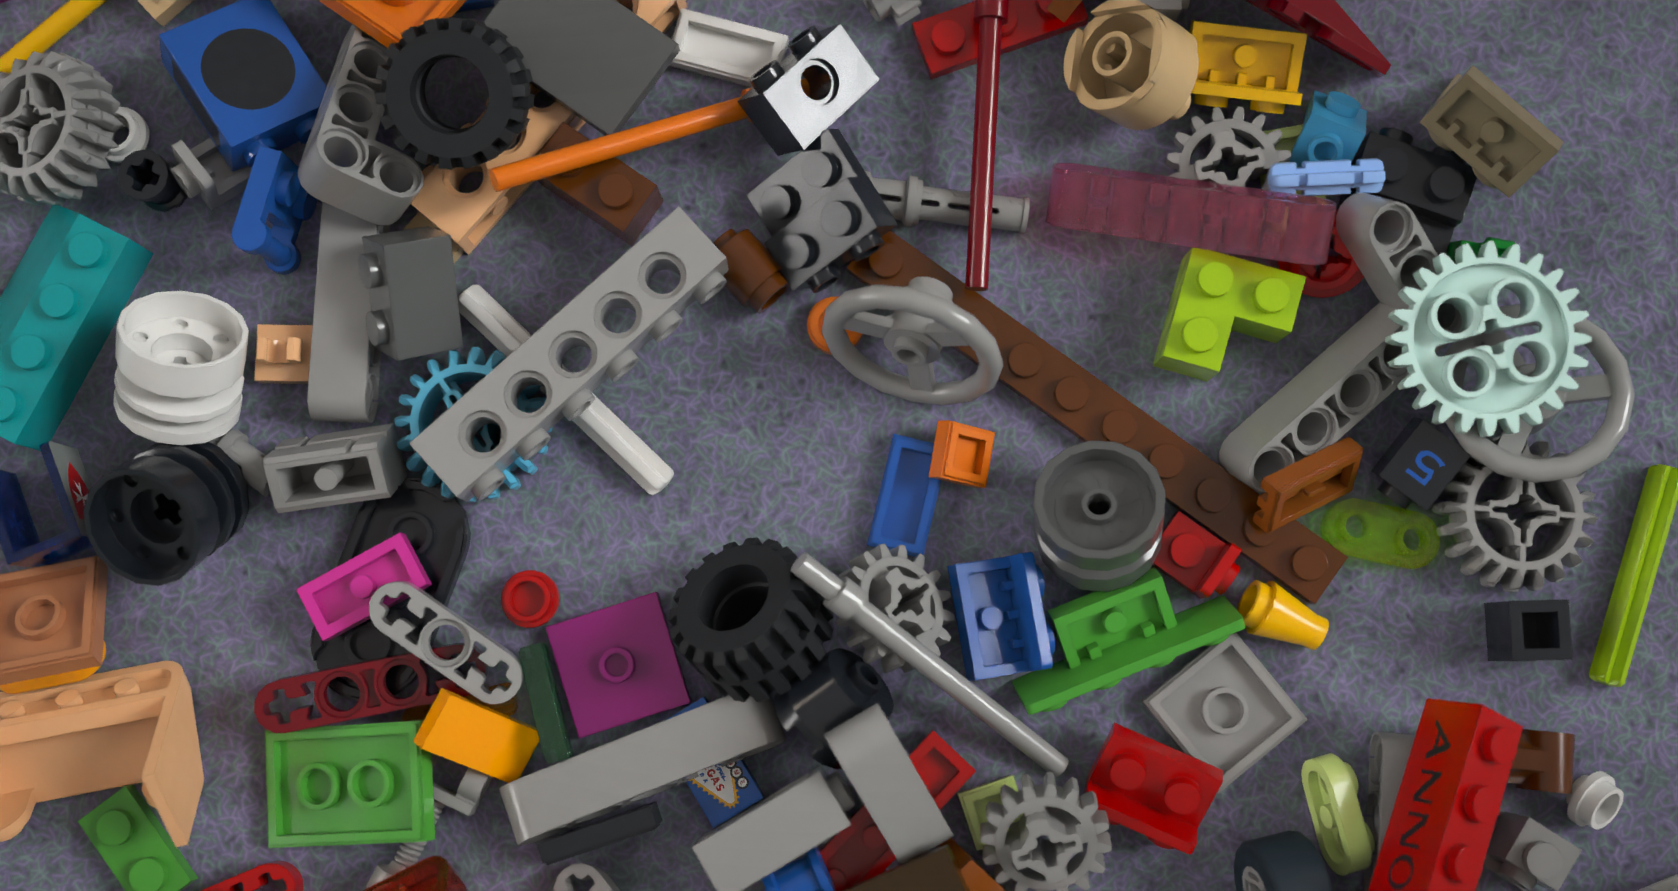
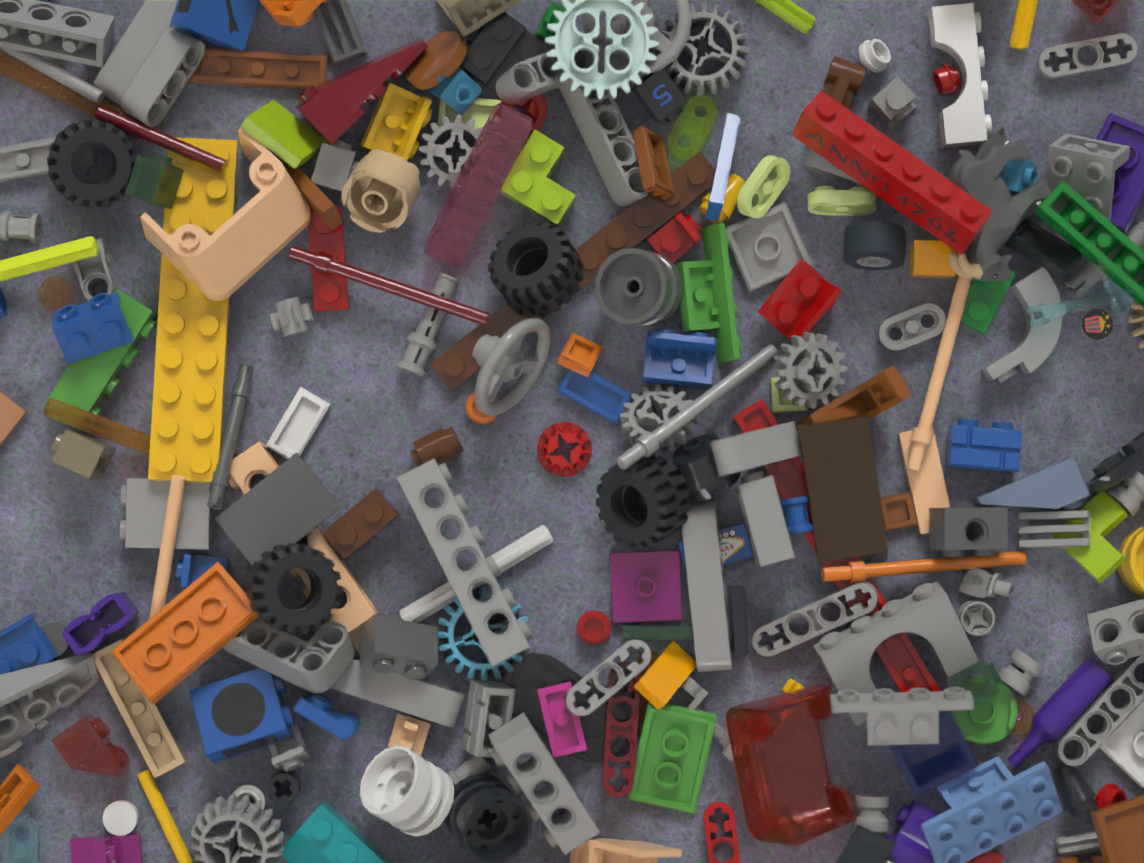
camera: 75 degrees left, 5 degrees up
(307, 529) = (520, 738): none -> light grey brick
(620, 143) = (338, 418): orange bar -> none
(799, 499) = (549, 442): none -> red gear
(821, 213) = (416, 397): plate -> none
(835, 79) = (341, 366): brick -> none
(1080, 341) = (523, 252): none -> black tyre
(1322, 676) = (763, 186): none -> yellowish green plate
(1327, 177) = (480, 99): light blue axle -> none
(1336, 599) = (722, 167): none -> tile
(1369, 95) = (439, 58): none -> dark orange tile
(1528, 630) = (770, 64): black brick -> none

